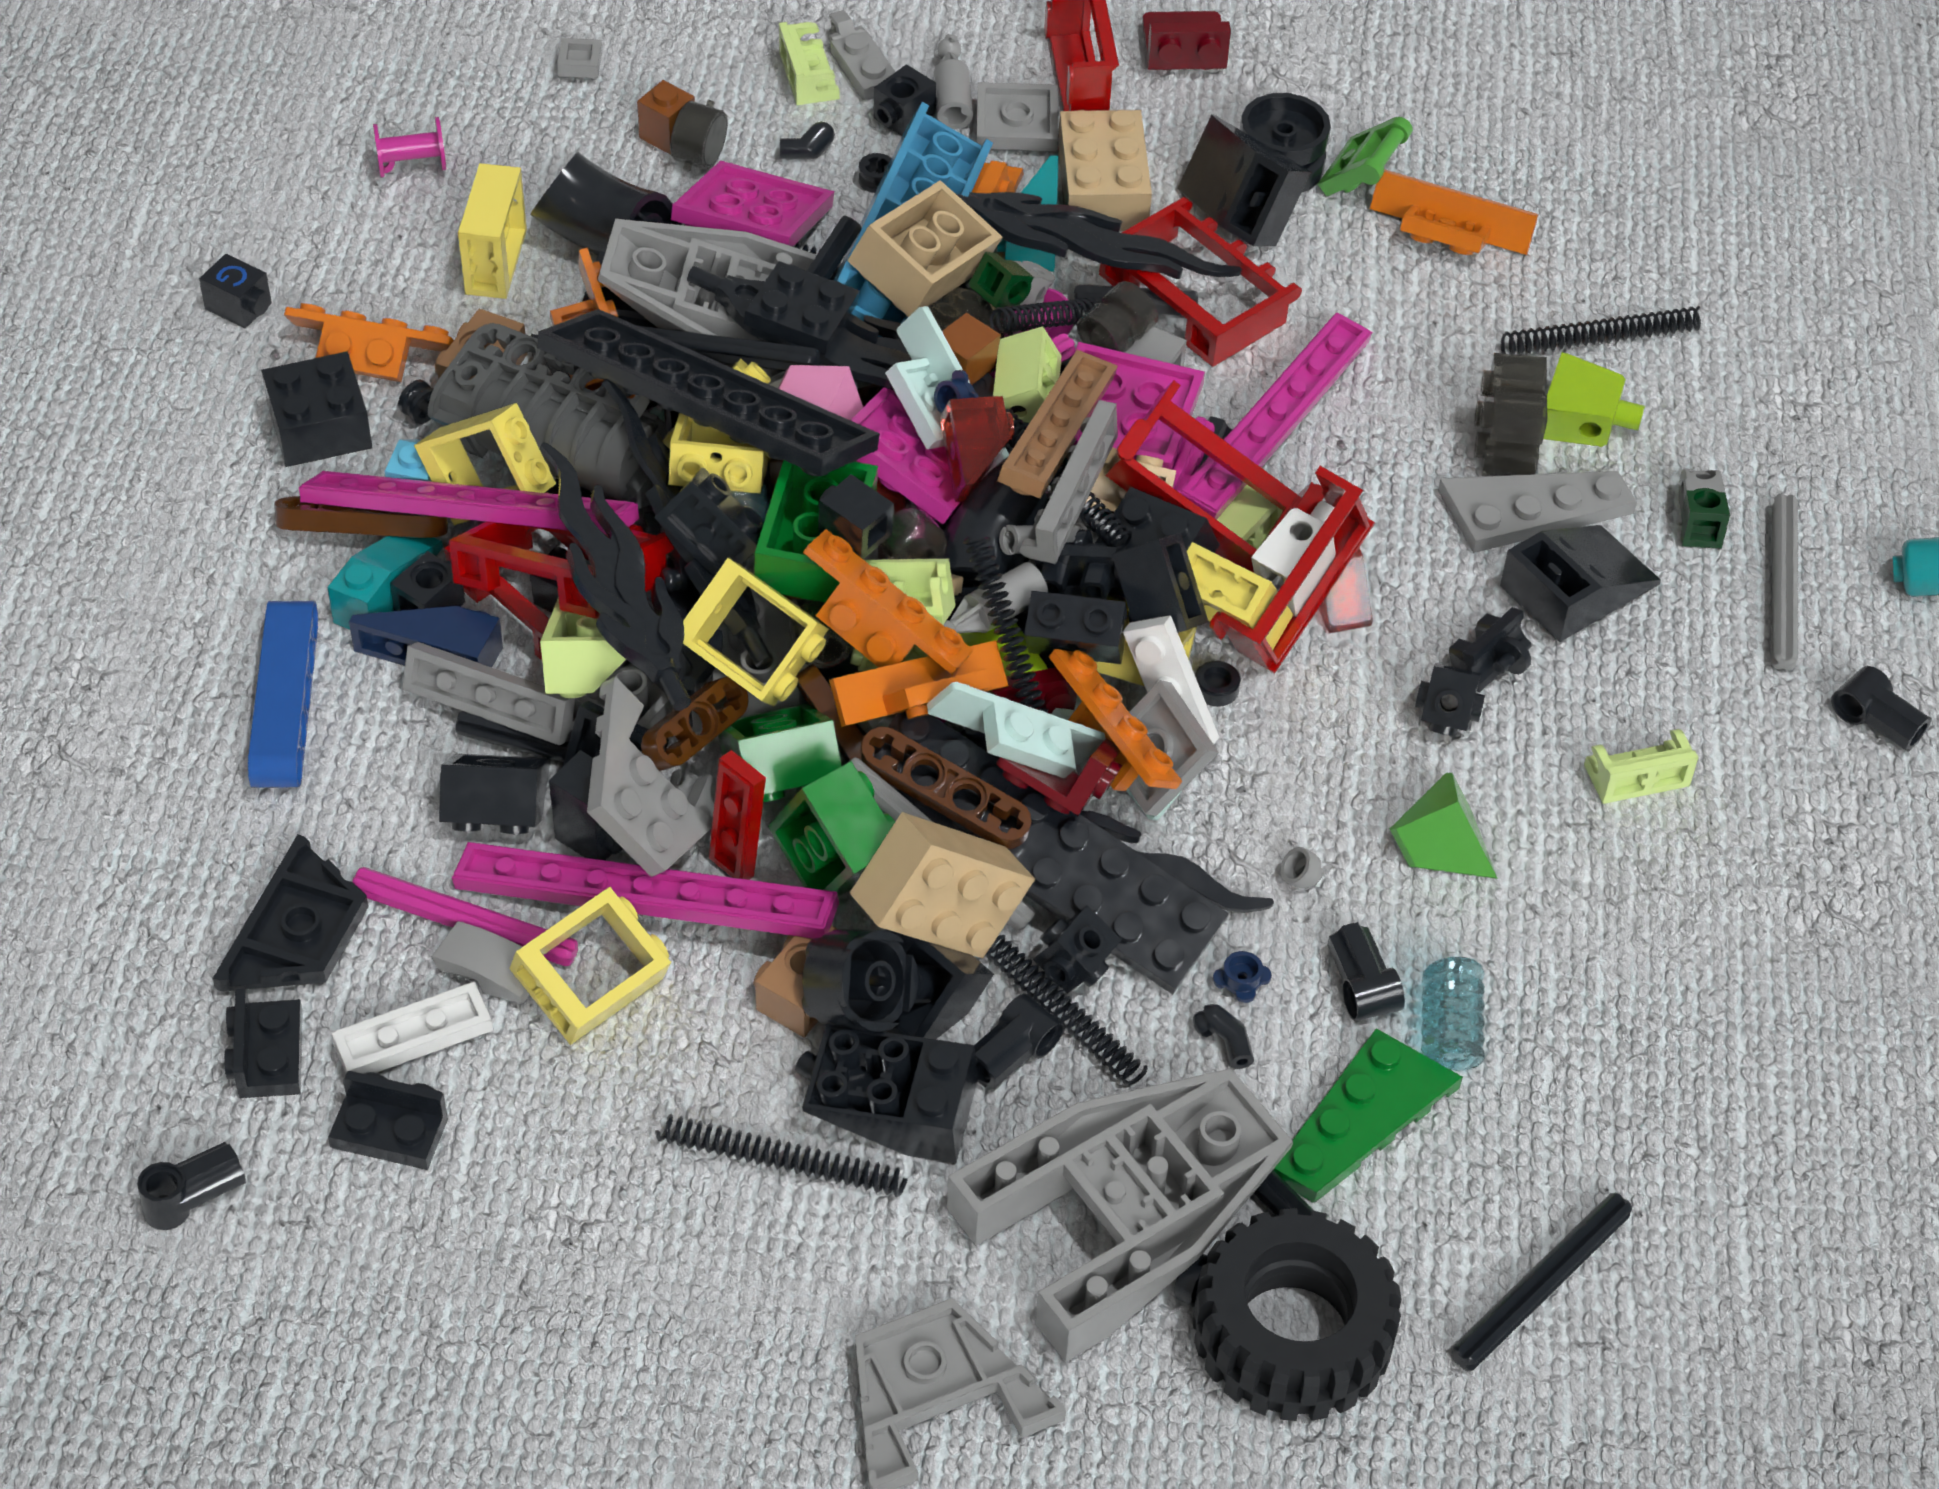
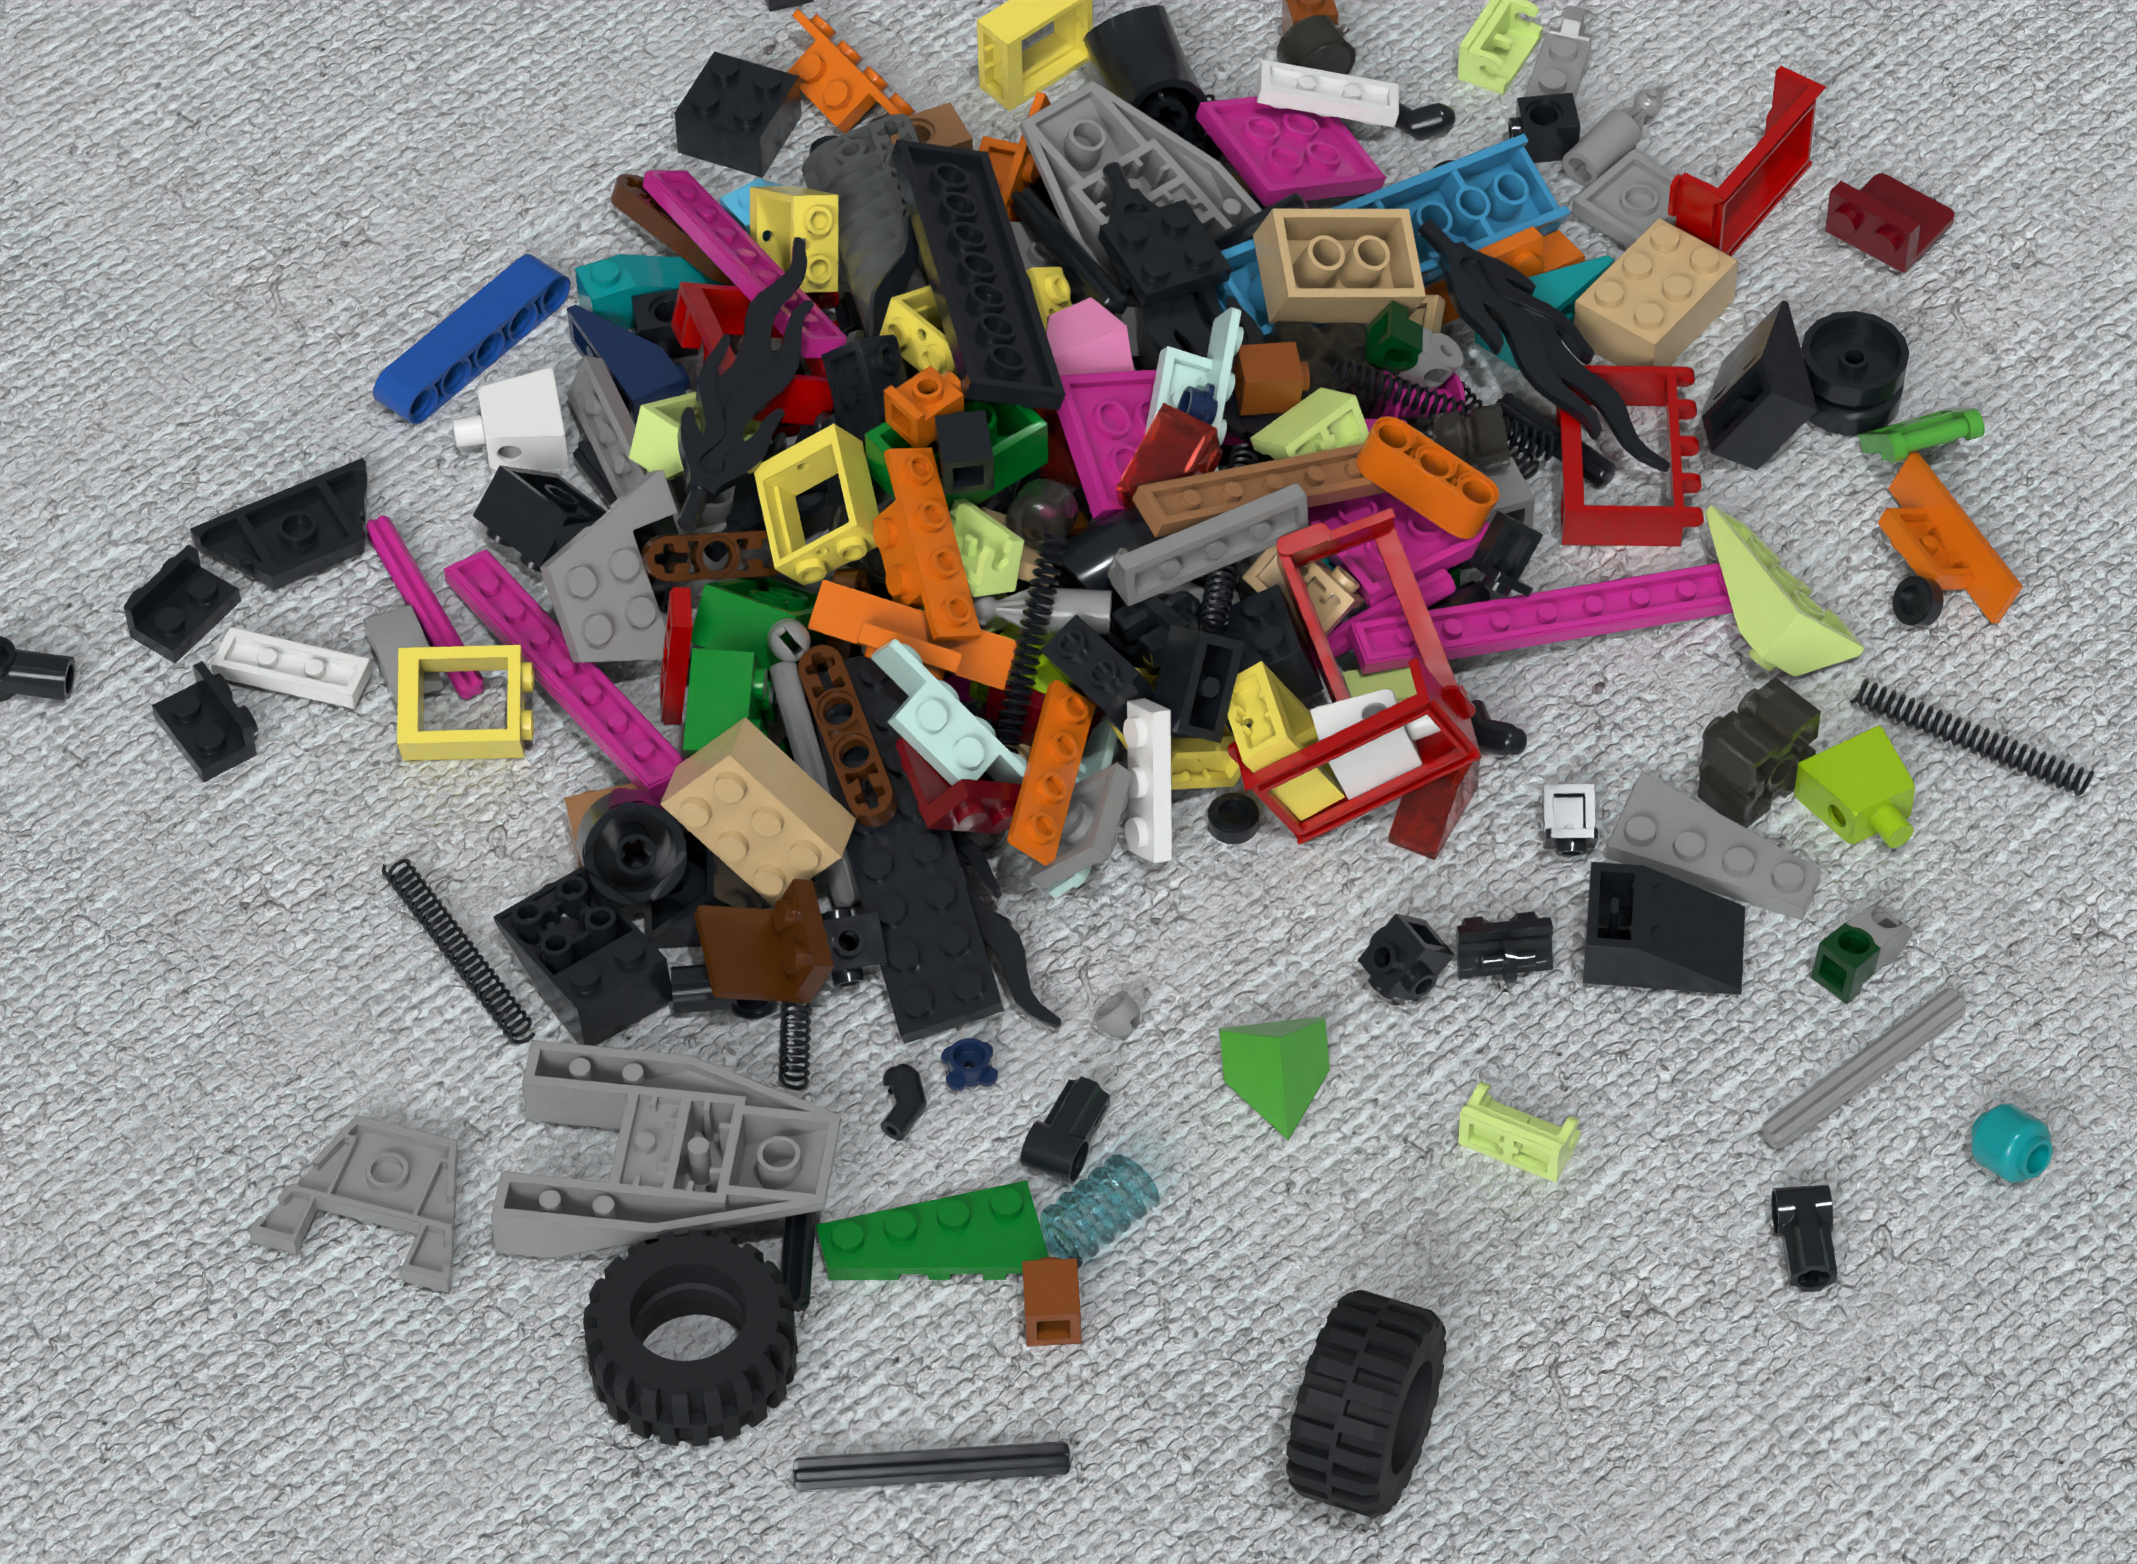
camera: 45 degrees right, 0 degrees up
(395, 732) = (518, 423): none -> white torso
(744, 153) = (1327, 93): none -> white plate
(789, 492) = (915, 403): none -> orange brick
(839, 751) = (799, 635): none -> light grey hinge
(1043, 981) = (767, 951): none -> reddish brown bracket
(1142, 355) = (1427, 477): none -> orange beam
(1221, 380) = (1505, 554): none -> black bracket
(1412, 324) = (1774, 606): none -> yellowish green wedge
(1435, 538) = (1569, 818): none -> bracket
(1479, 264) = (1918, 601): none -> black tile
(1493, 1100) = (1051, 1301): none -> dark orange brick
(1813, 1007) = (1366, 1403): none -> black tyre

